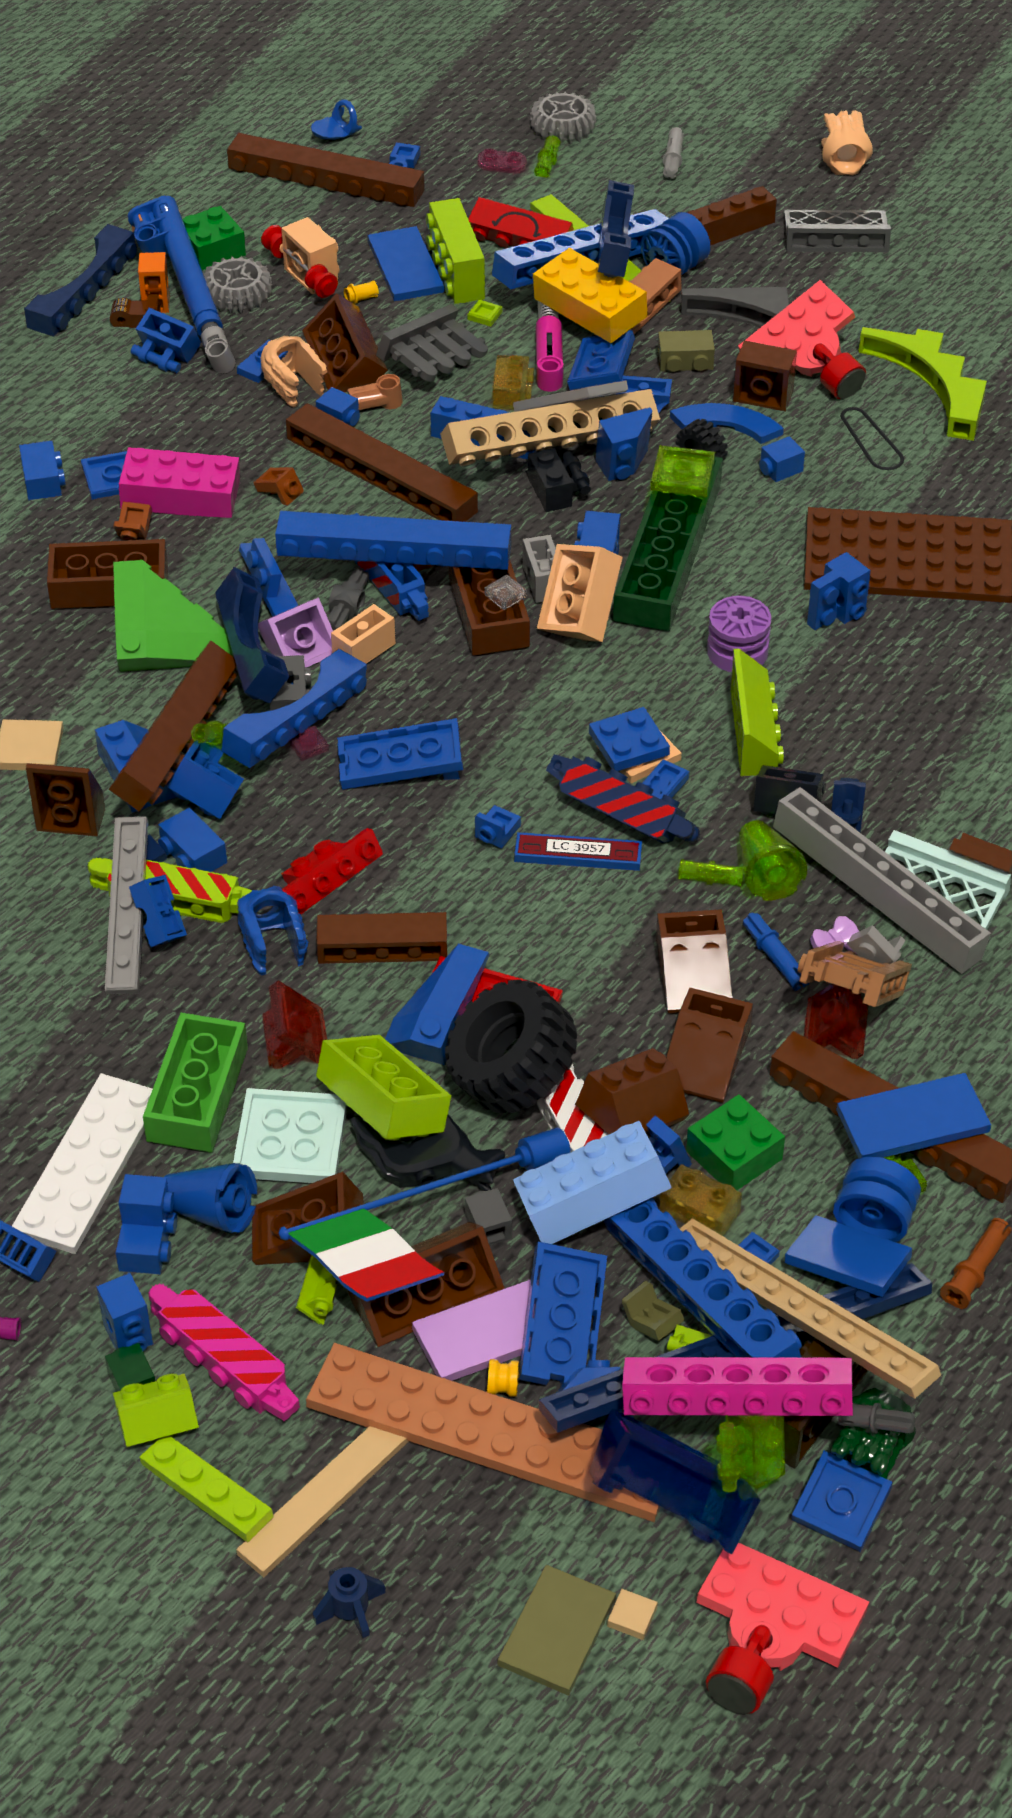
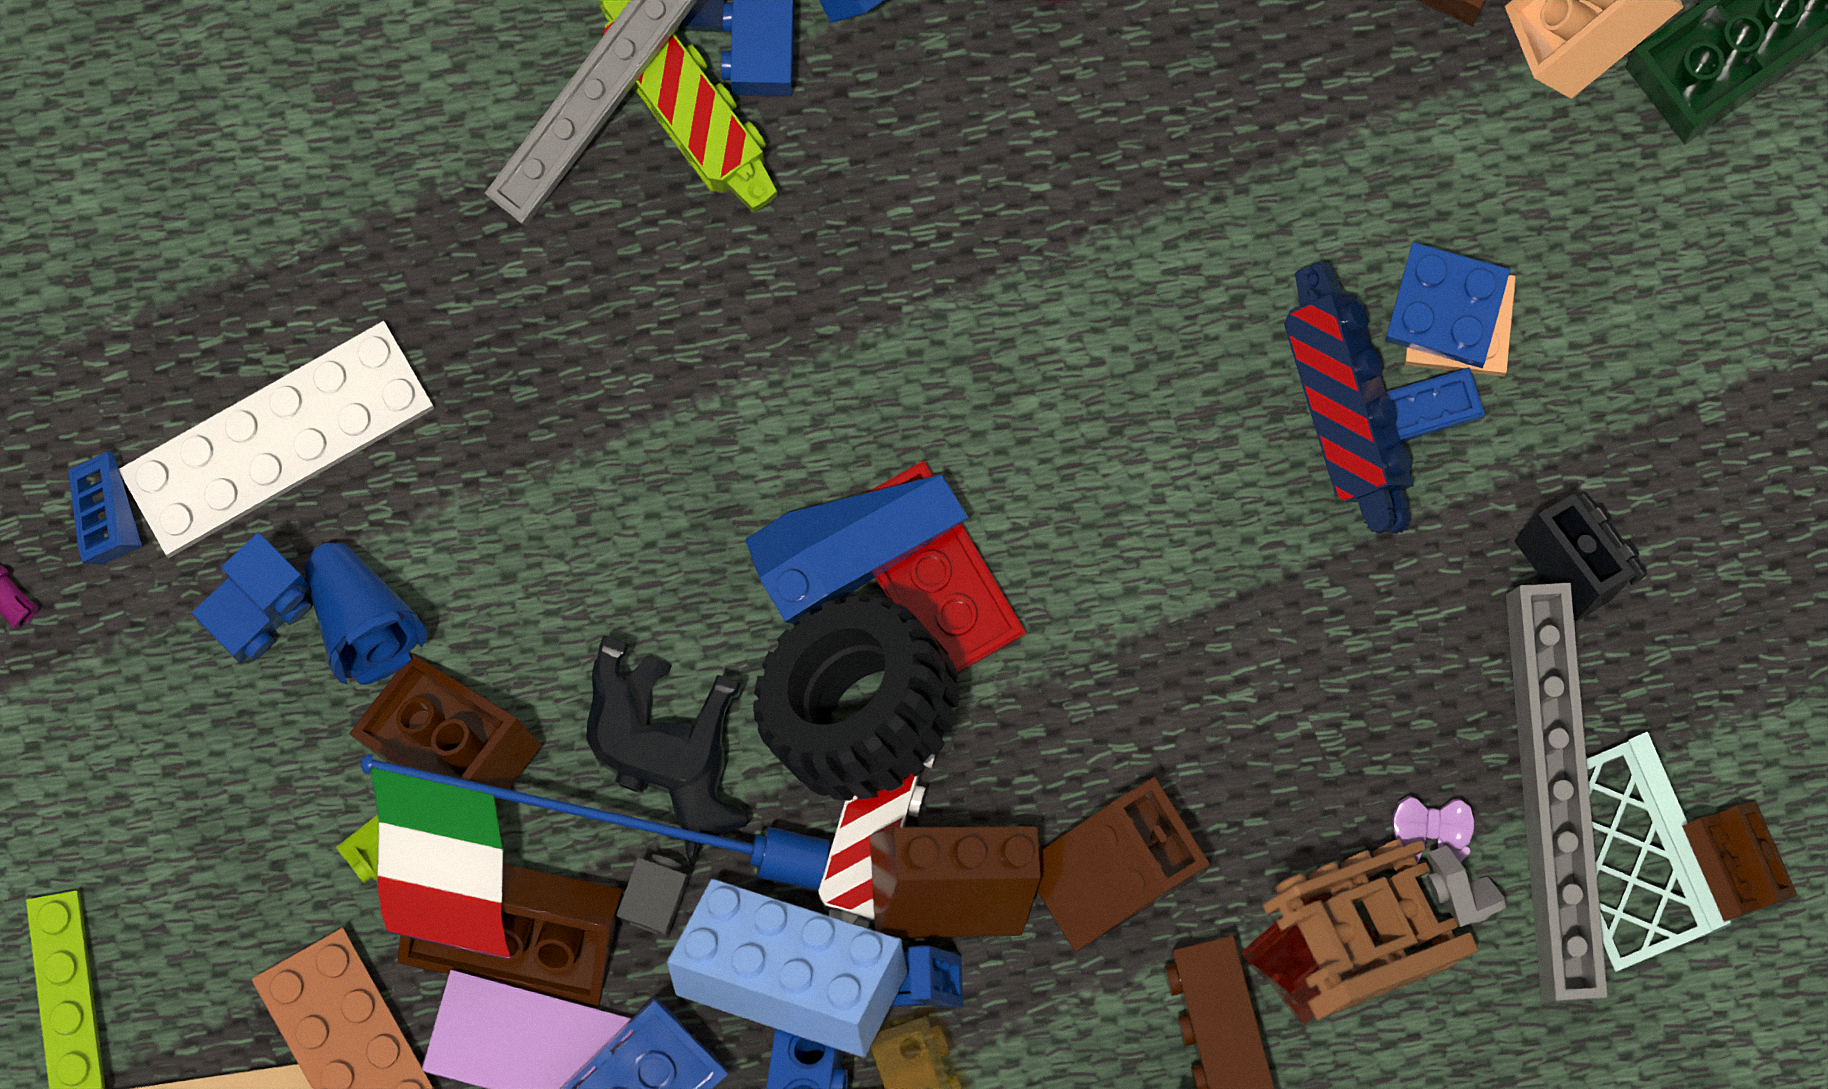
camera: 40 degrees right, 30 degrees up
(124, 1313) = (134, 712): blue brick -> none
(128, 1367) = (94, 784): dark green brick -> none
(155, 1409) = (78, 860): lime hinge -> none
(156, 903) = (625, 113): blue piece -> none
(195, 1082) = (472, 431): bright green brick -> none
(224, 1350) = (217, 837): dark pink hinge -> none
(282, 915) = (772, 235): blue piece -> none
(290, 1135) = (527, 591): light aqua plate -> none
(292, 1027) = (654, 441): clear red bracket -> none
(329, 867) = (891, 209): red bracket -> none
(381, 937) = (872, 378): reddish brown brick -> none
(383, 1086) = (663, 630): lime brick -> none
(400, 754) = (1137, 96): blue piece -> none
(496, 826) = (1162, 310): blue bracket -> none
(578, 851) = (1236, 427): tile -> none
(691, 869) = (1370, 596): clear neon green pin -> none
(692, 954) = (1214, 727): slope -> none
(735, 1143) = (1025, 1032): green piece -> none
(738, 624) = (1734, 258): medium lavender wheel -> none
(754, 715) = (1647, 395): lime slope -> none
(769, 942) = (1340, 782): blue axle -> none
(770, 862) = (1451, 641): clear neon green cone -> none
(849, 801) = (1626, 643): dark blue hips -> none

